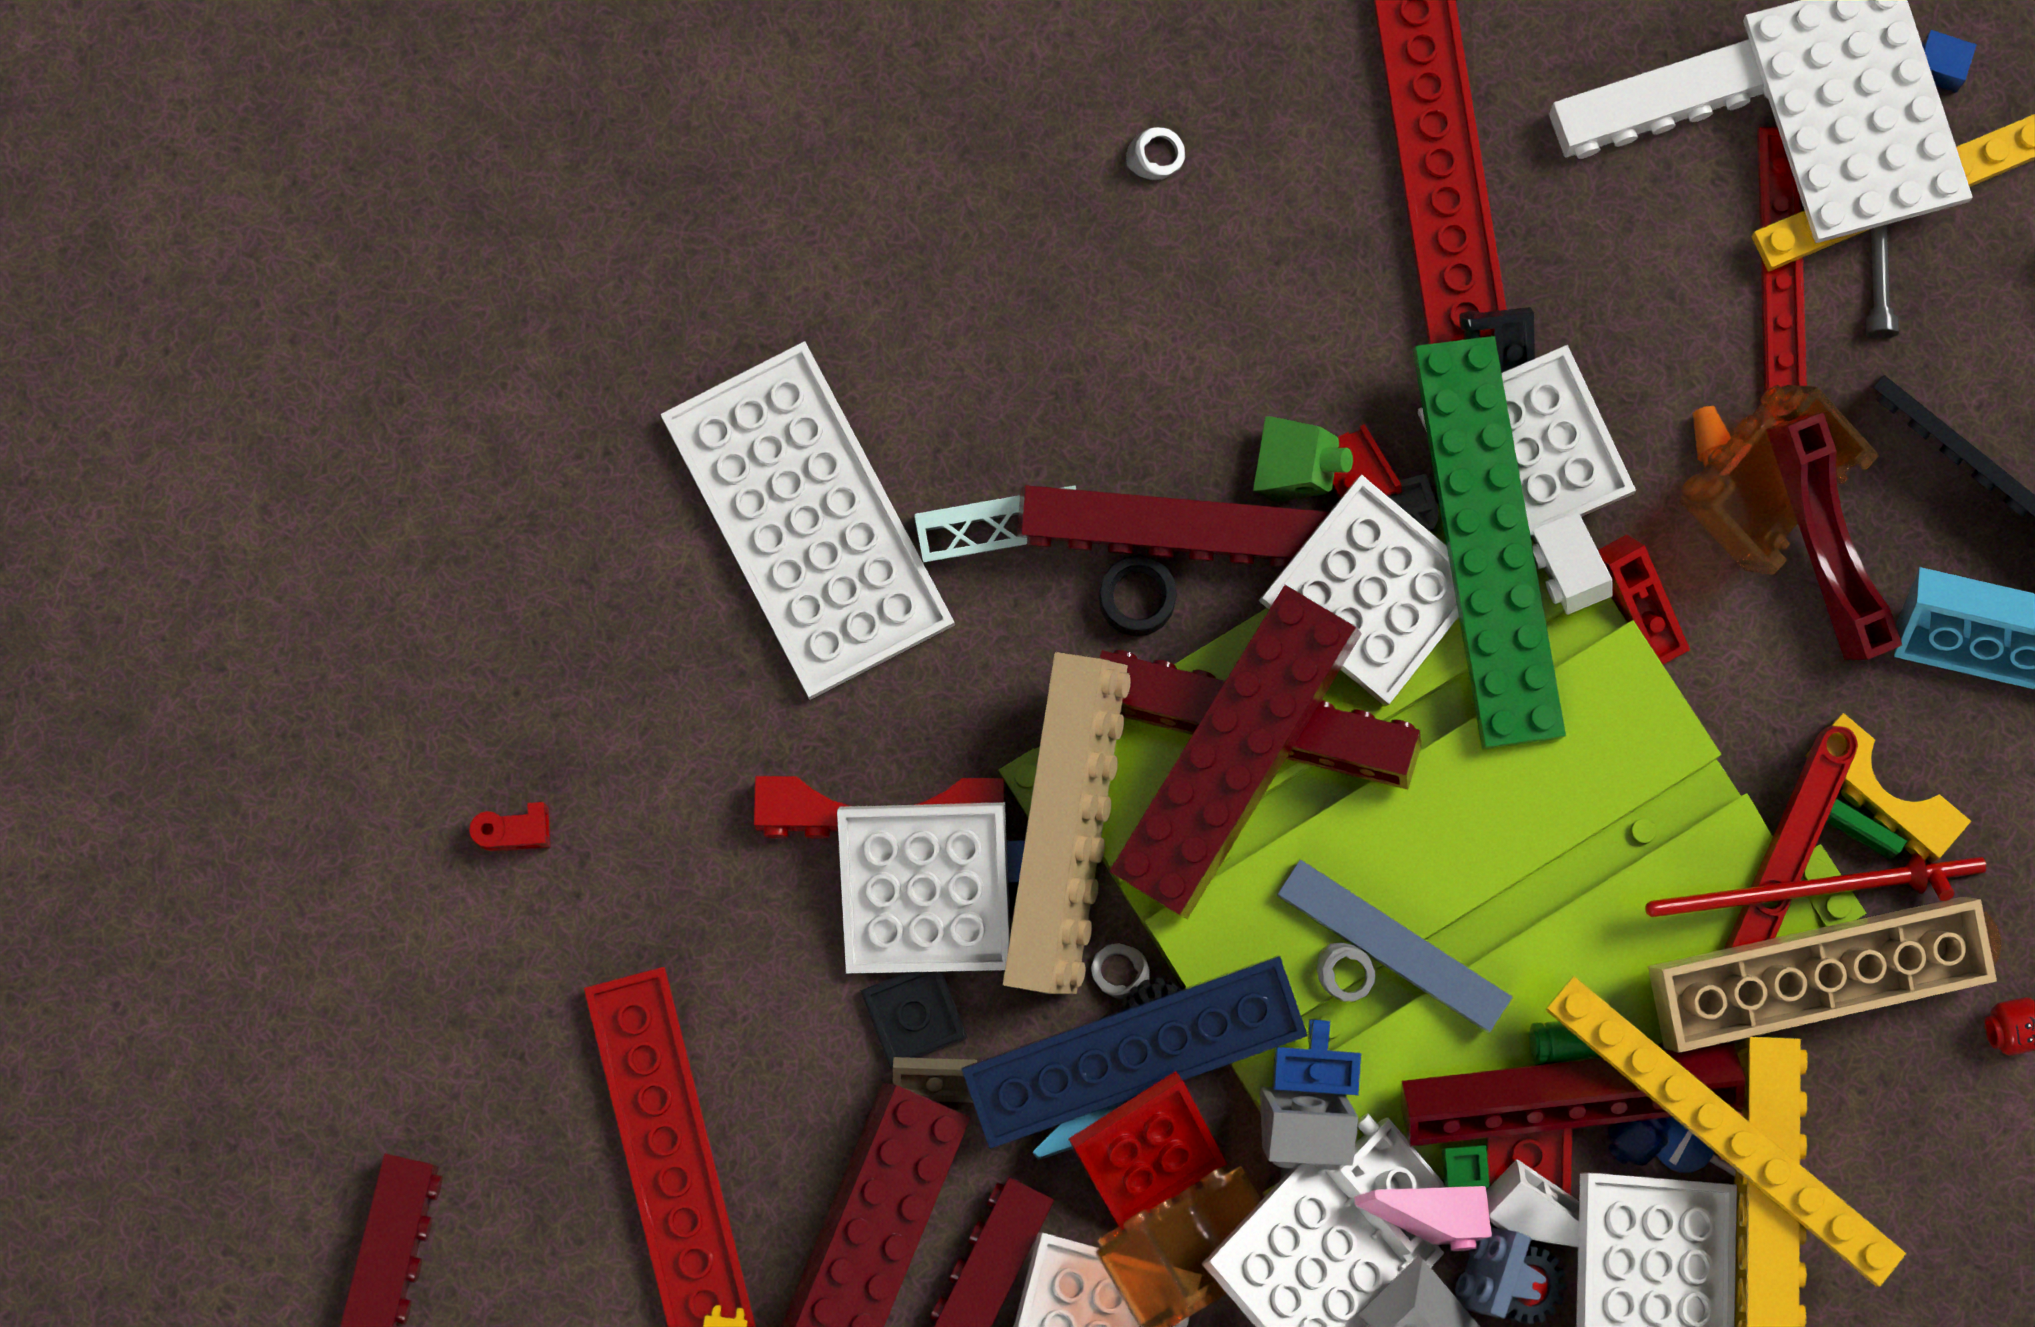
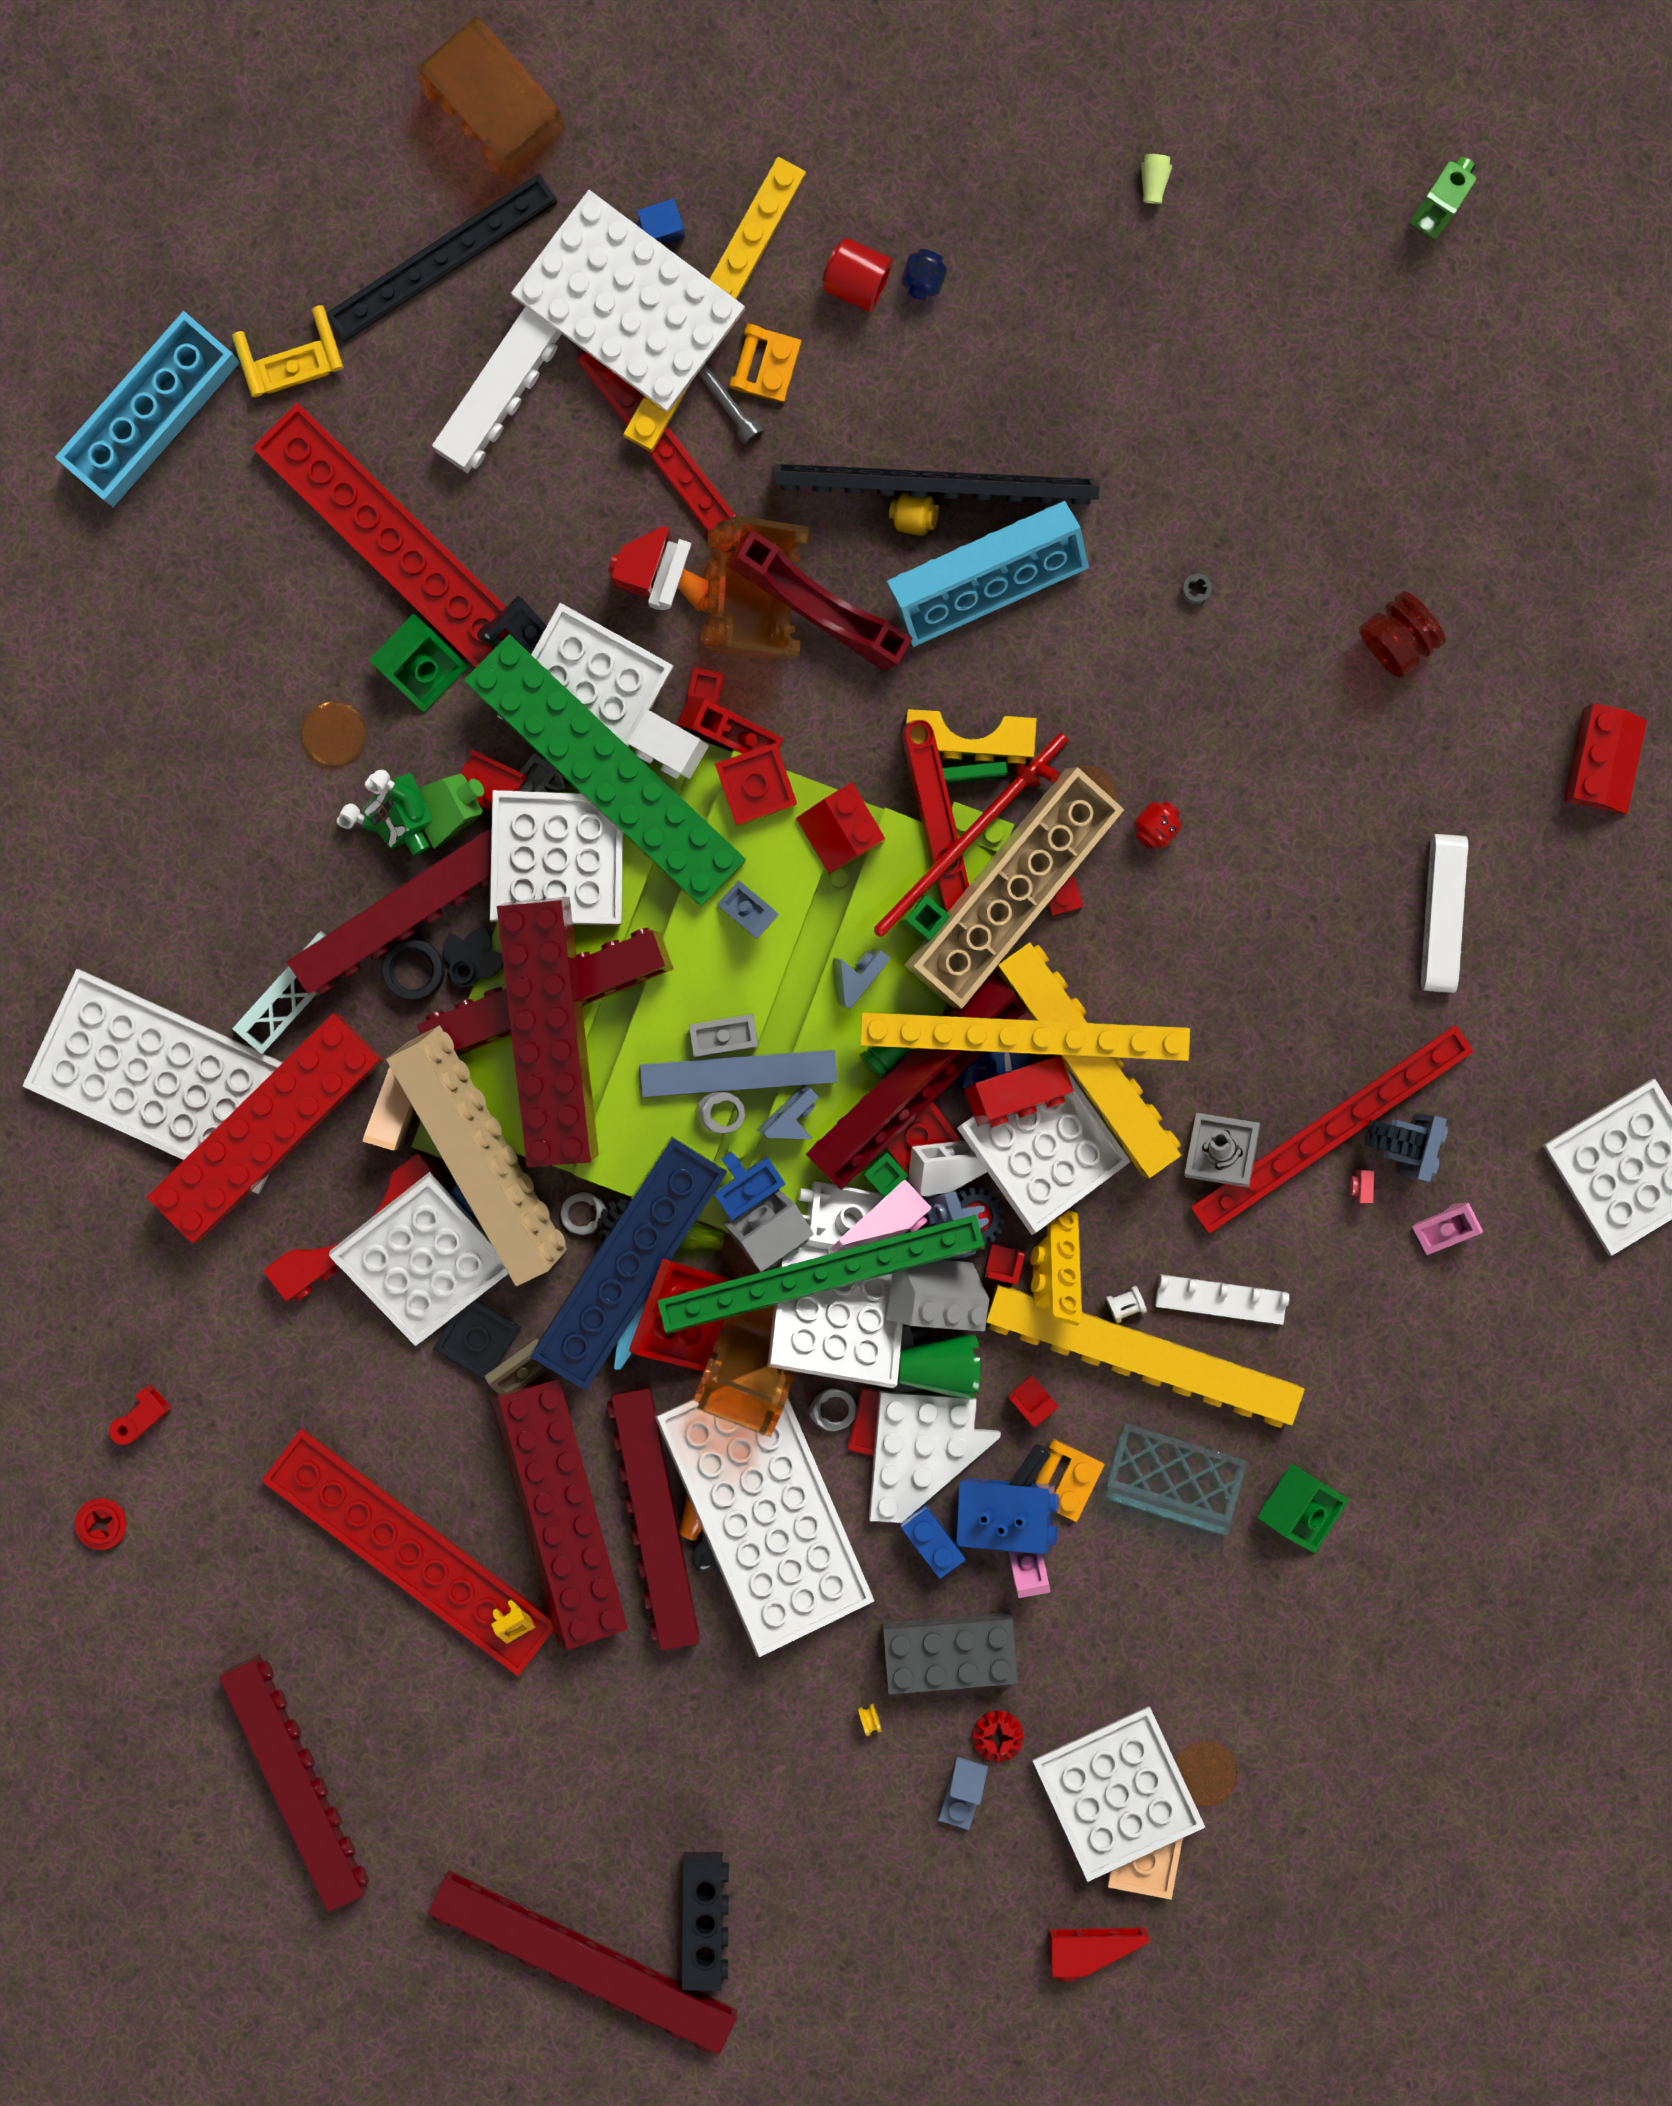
camera: 35 degrees left, 10 degrees up
(376, 892) = (98, 1538): none -> red gear
(871, 636) = (265, 1128): none -> red brick
(1008, 718) = (390, 1116): none -> light nougat slope
(1138, 161) = (198, 687): piece -> none
(1210, 625) = (474, 953): none -> black plate
(1223, 1089) = (702, 1238): none -> clear neon green cone
(1237, 306) = (333, 733): none -> clear orange piece
(1241, 426) = (393, 812): none -> green torso
(1330, 1212) = (821, 1274): none -> green plate
(1376, 300) = (418, 663): none -> green slope
(1405, 1030) = (783, 1121): none -> sand blue slope
(1408, 895) = (723, 1035): none -> light grey plate
(1530, 788) = (748, 909): none -> sand blue slope
(1582, 942) = (851, 982): none -> sand blue slope
(1632, 669) = (756, 784): none -> red plate
(1653, 535) = (706, 684): none -> red tile
(1674, 1186) = (1019, 1092): none -> red brick
(1677, 368) = (639, 563): none -> red slope
(1688, 777) = (840, 828): none -> red slope
(1697, 400) = (669, 575): none -> white slope
(1704, 933) = (924, 918): none -> green brick
(1864, 1028) = (1066, 898): none -> red plate
(1956, 281) = (775, 368): none -> light orange plate
(1993, 526) = (914, 514): none -> yellow head

